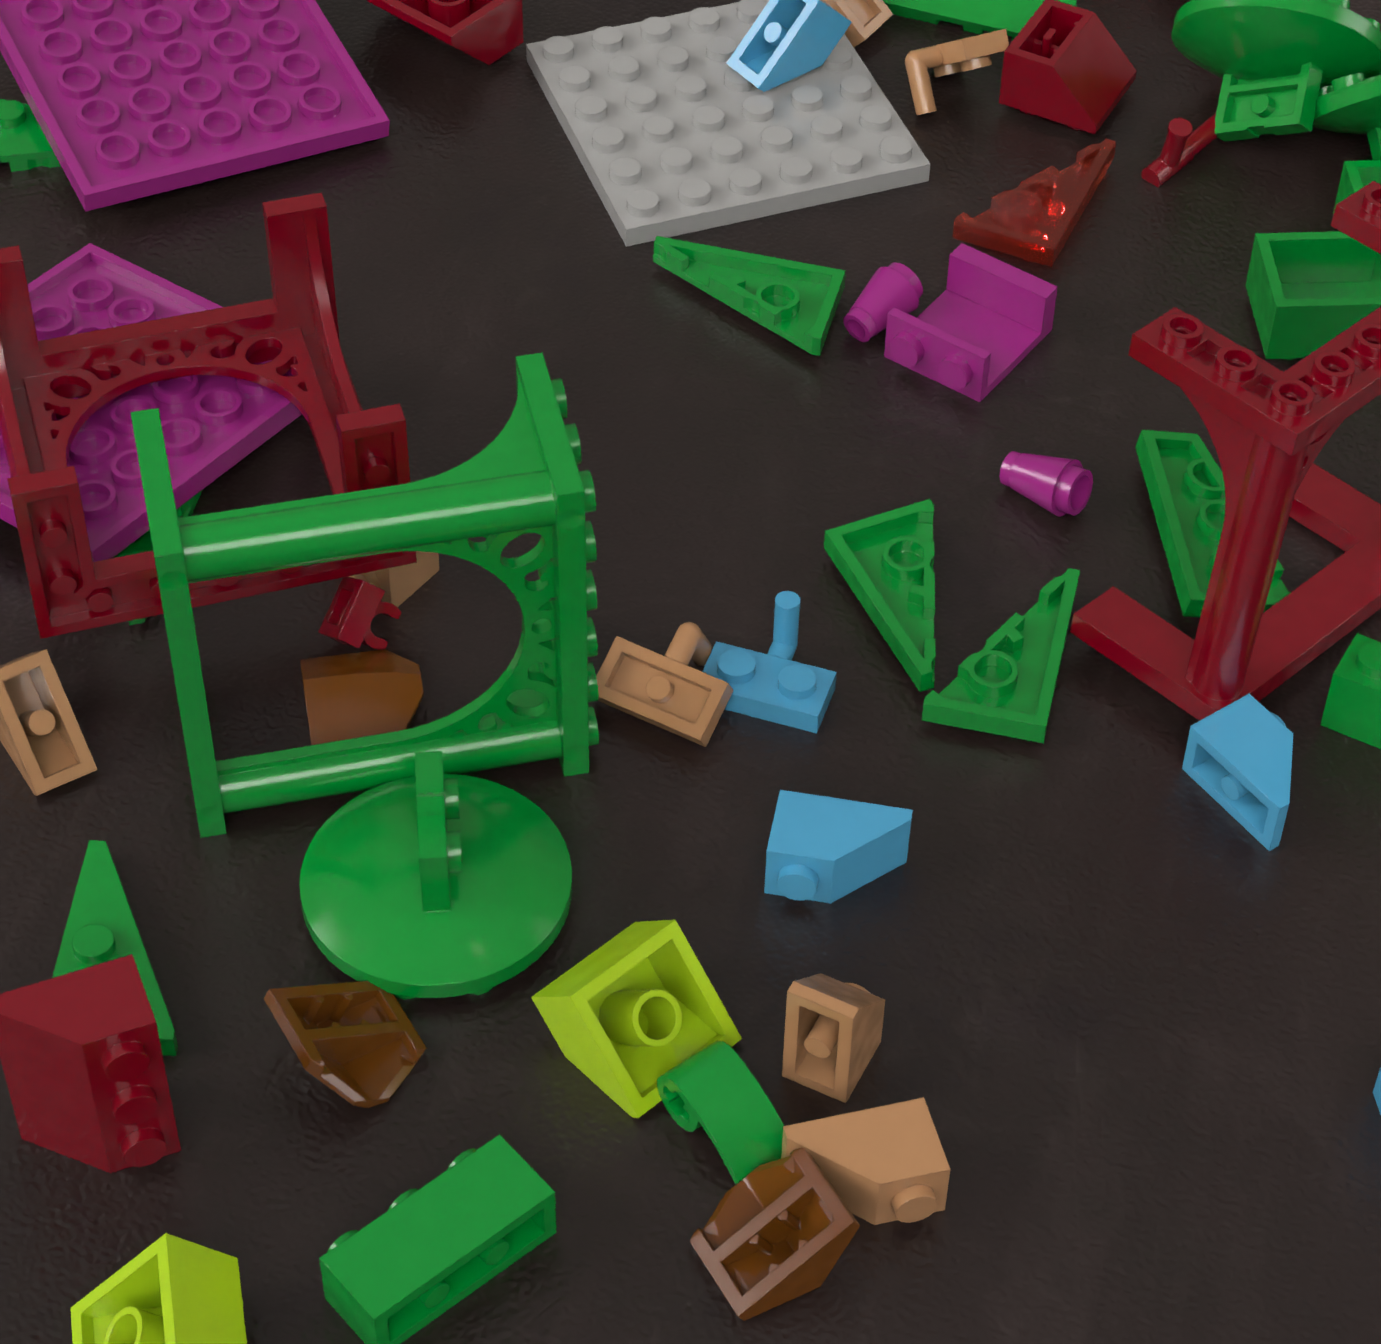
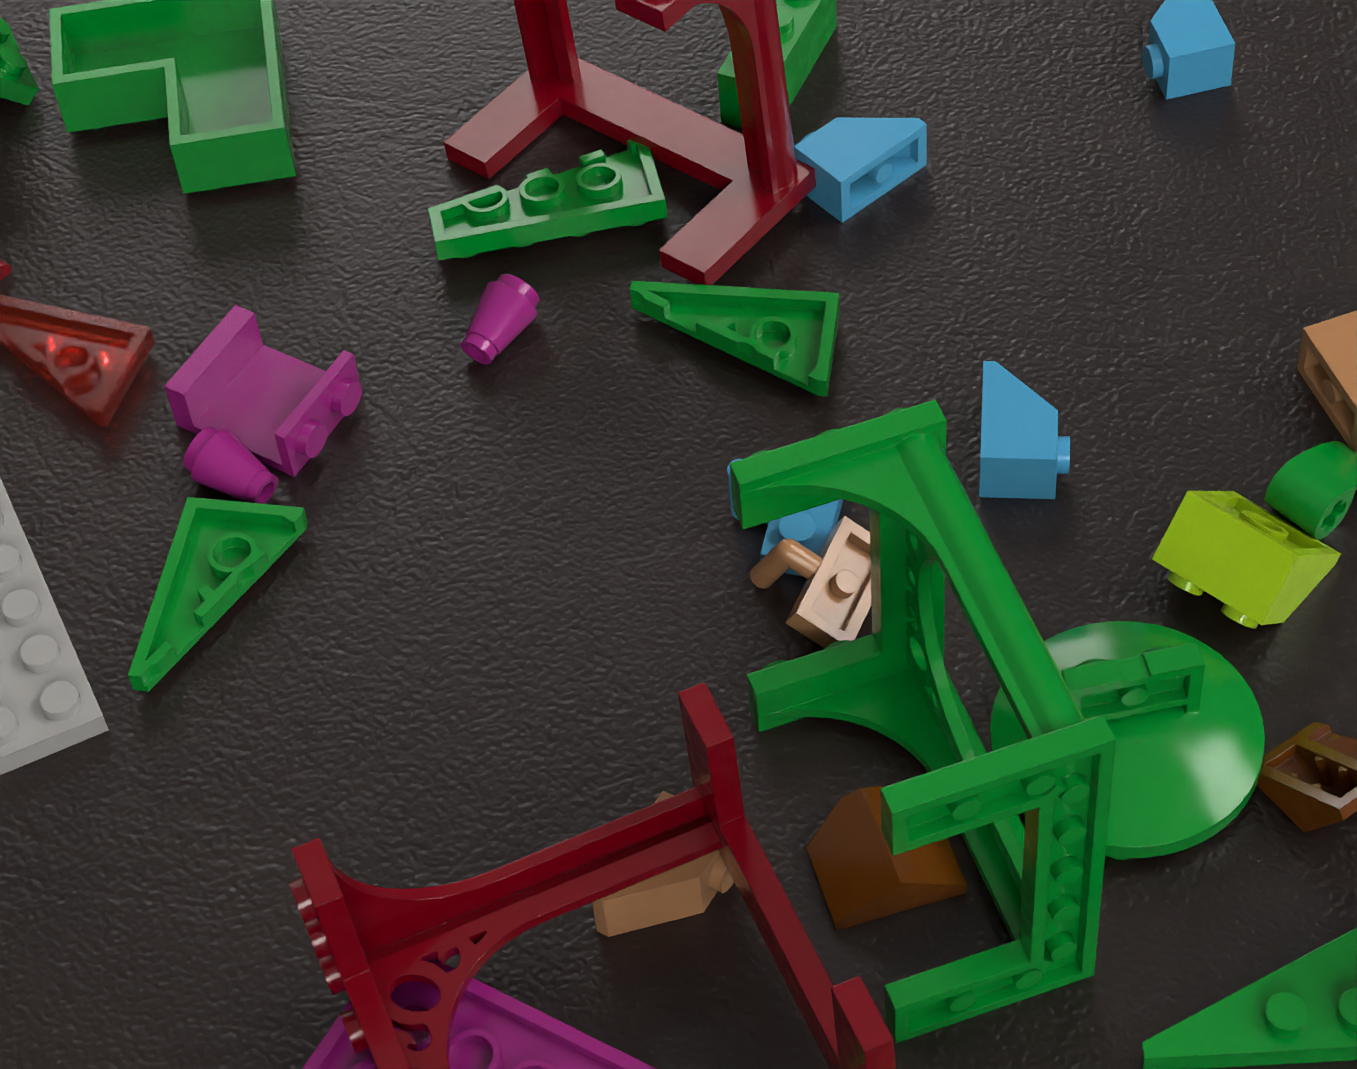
camera: 90 degrees left, 5 degrees up
(353, 611) = (795, 857): dark red tile -> none
(830, 1034) = (1236, 401): medium nougat slope -> none
(892, 575) = (658, 423): green wing -> none

